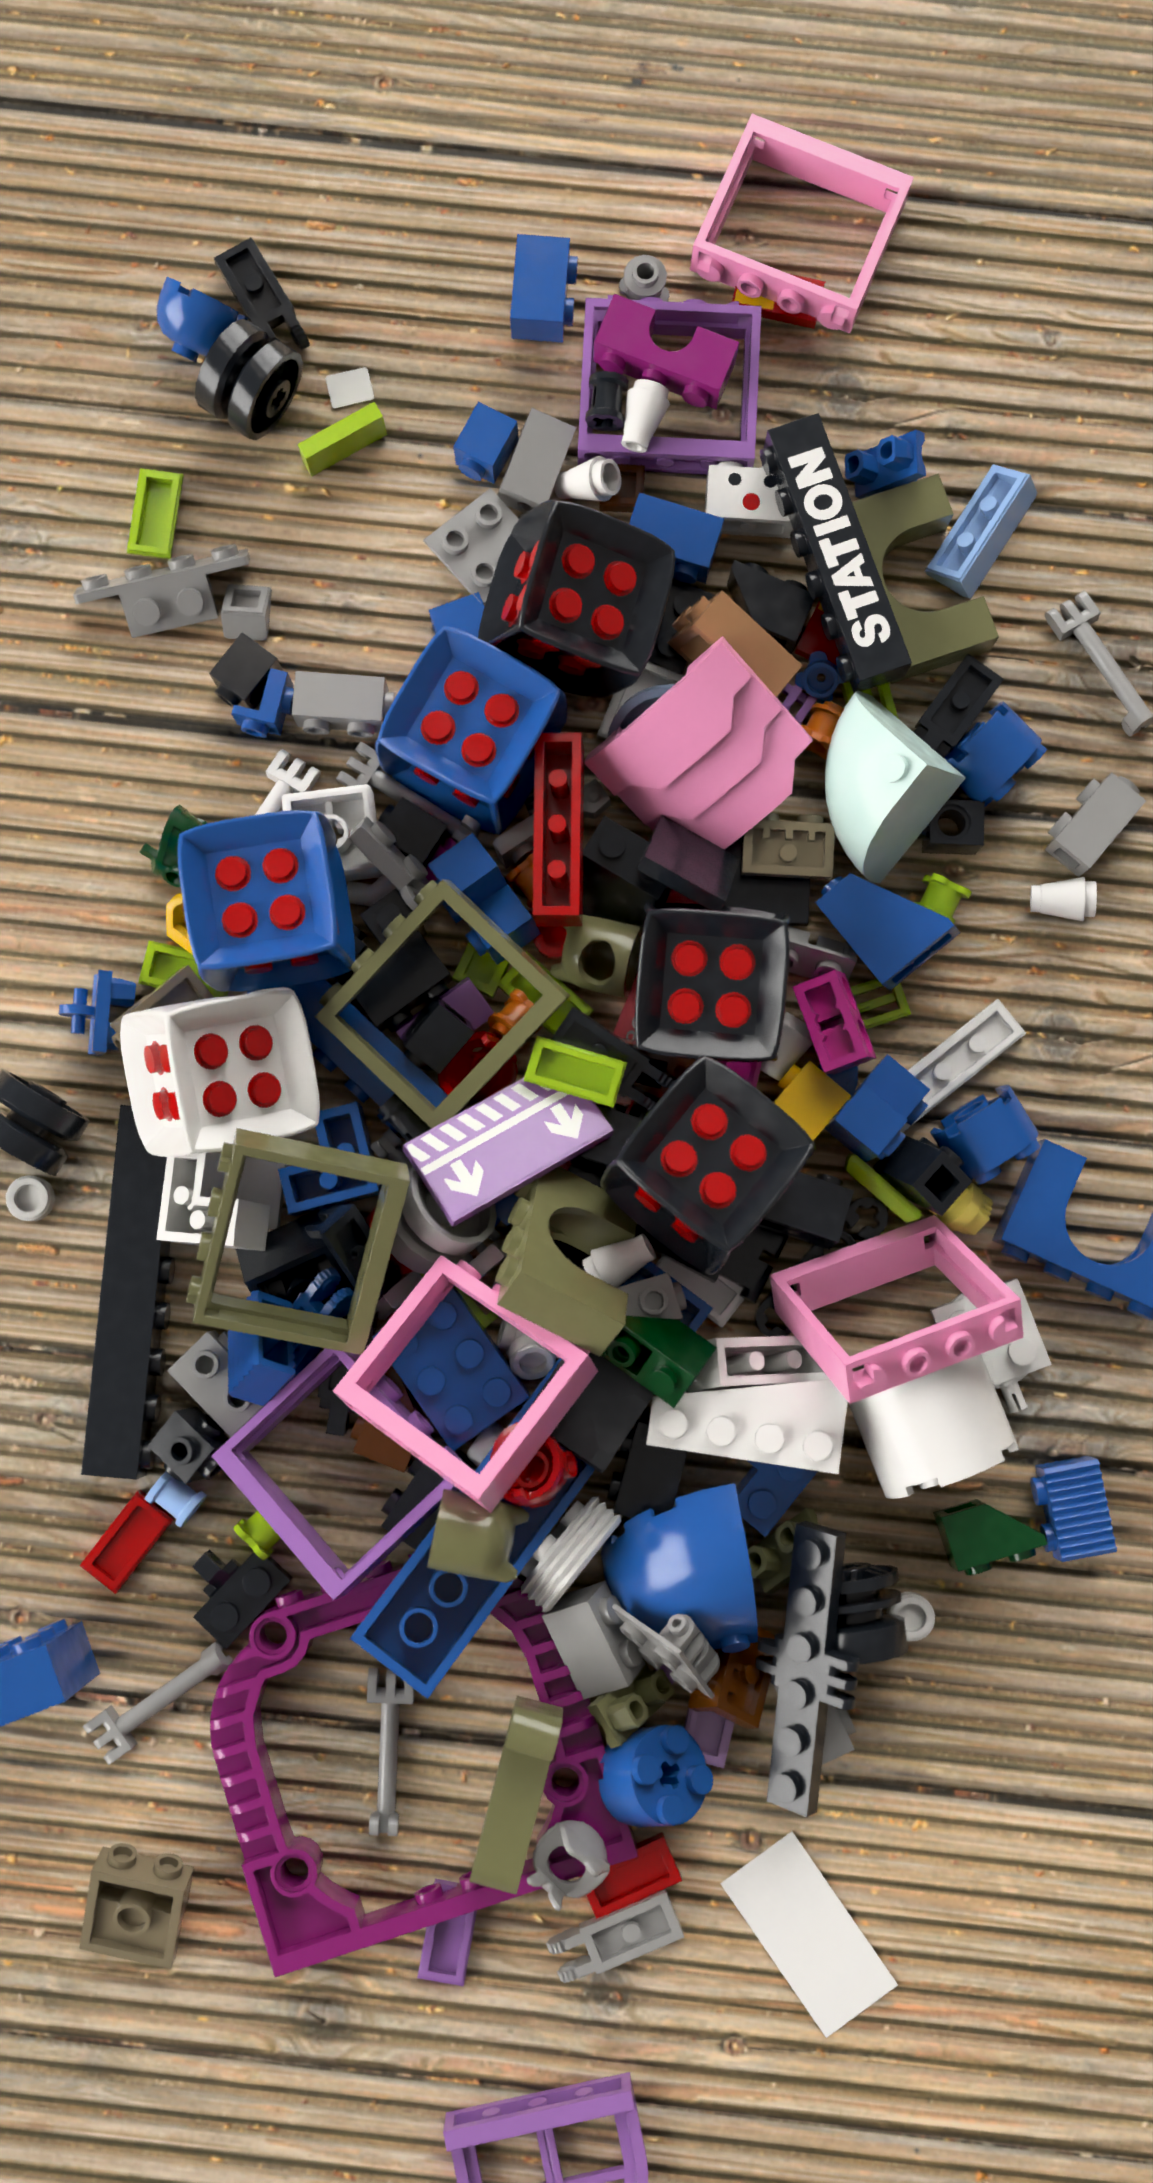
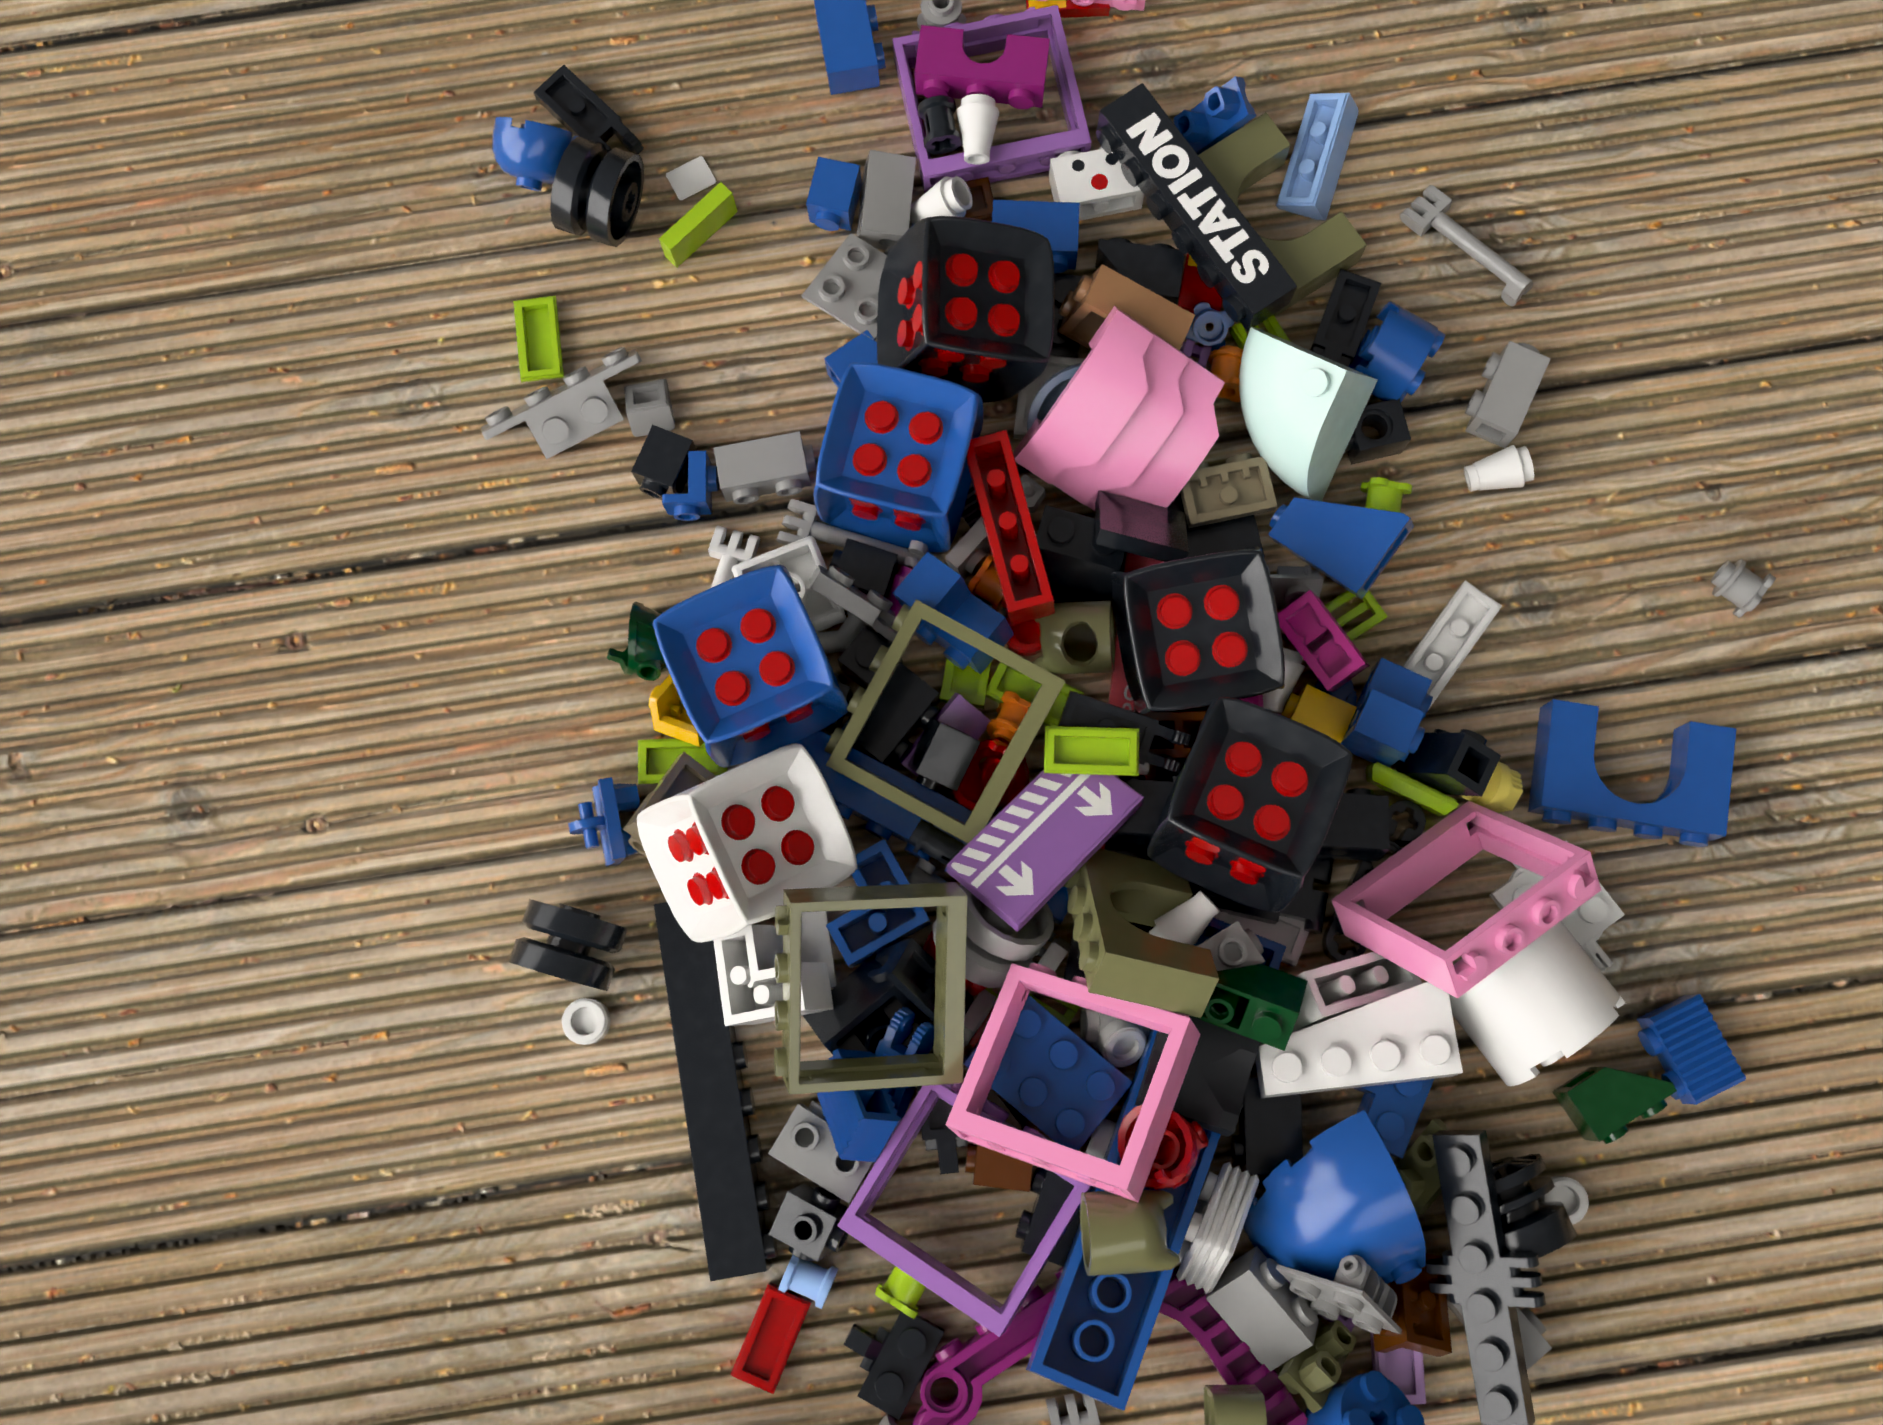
camera: 10 degrees left, 5 degrees down
(988, 1134) = (1499, 707): blue brick -> none

